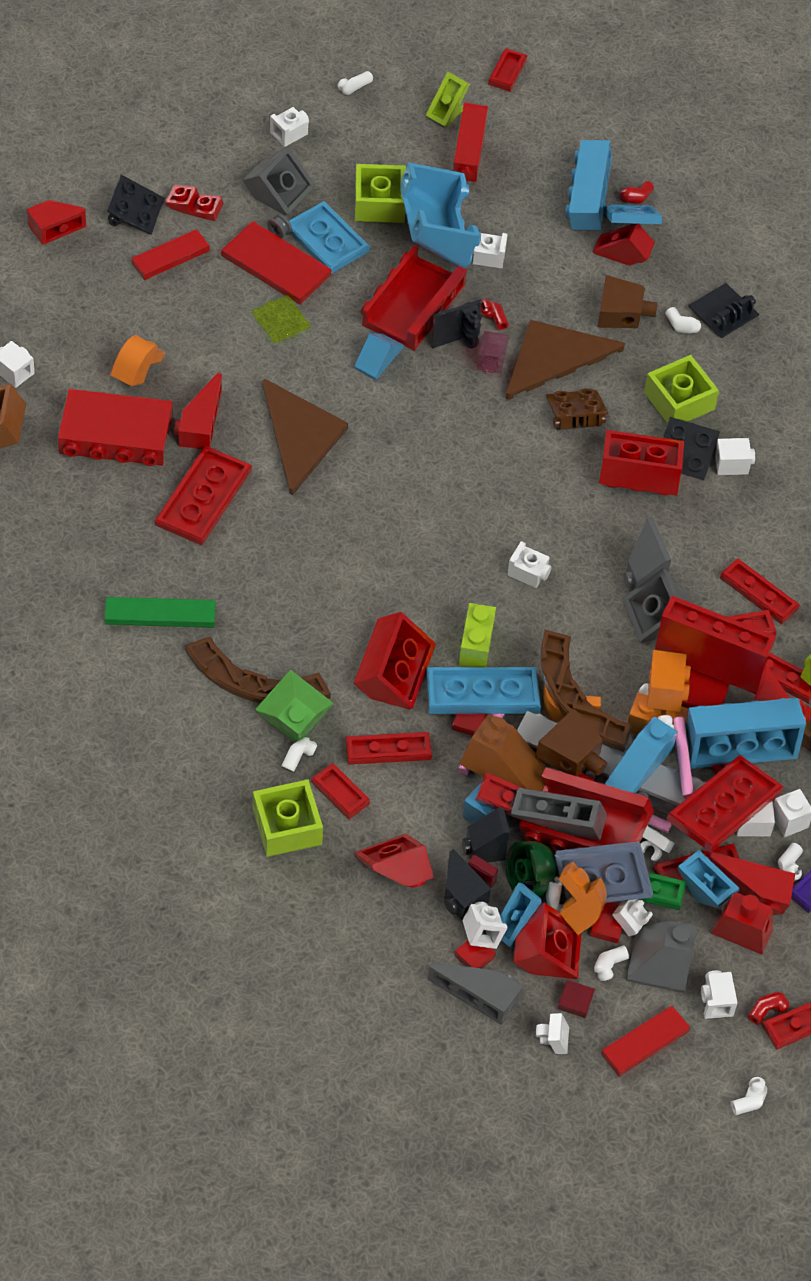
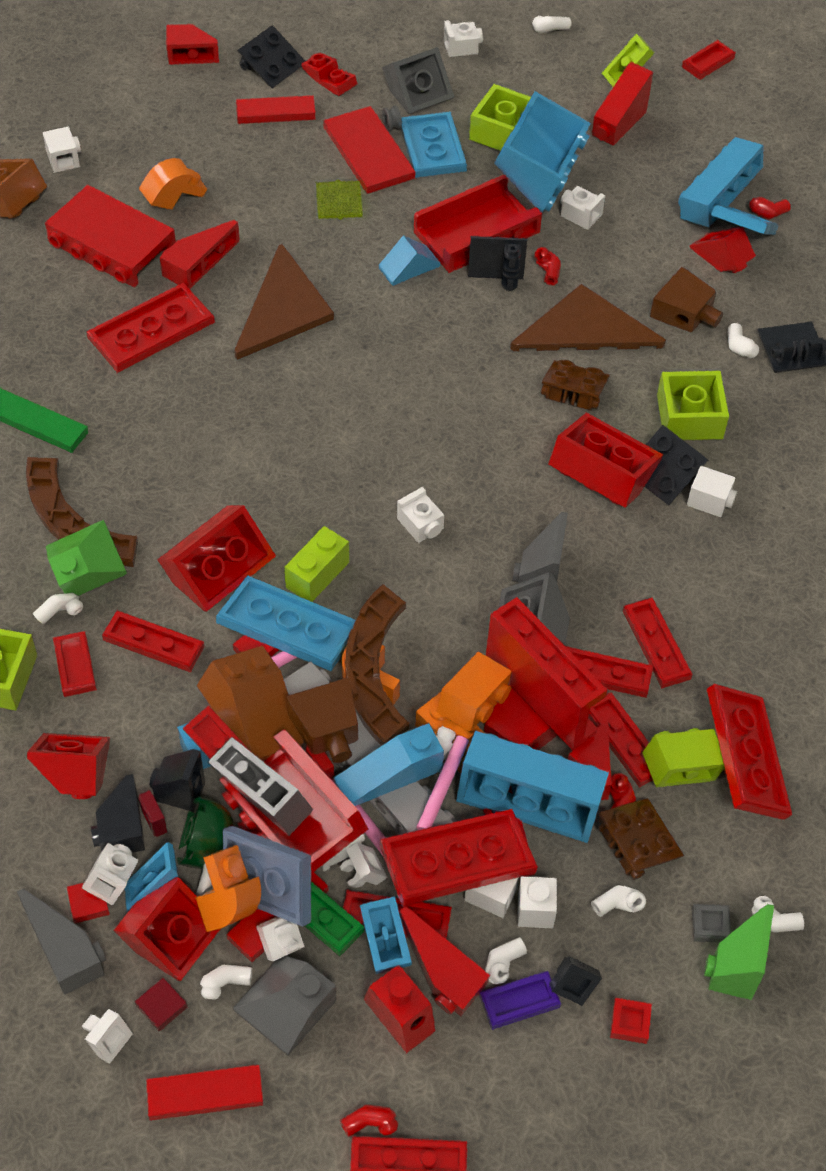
camera: 30 degrees right, 0 degrees up
(492, 352) = (521, 299): clear pink brick -> none
(719, 995) = (318, 1078): white brick -> none

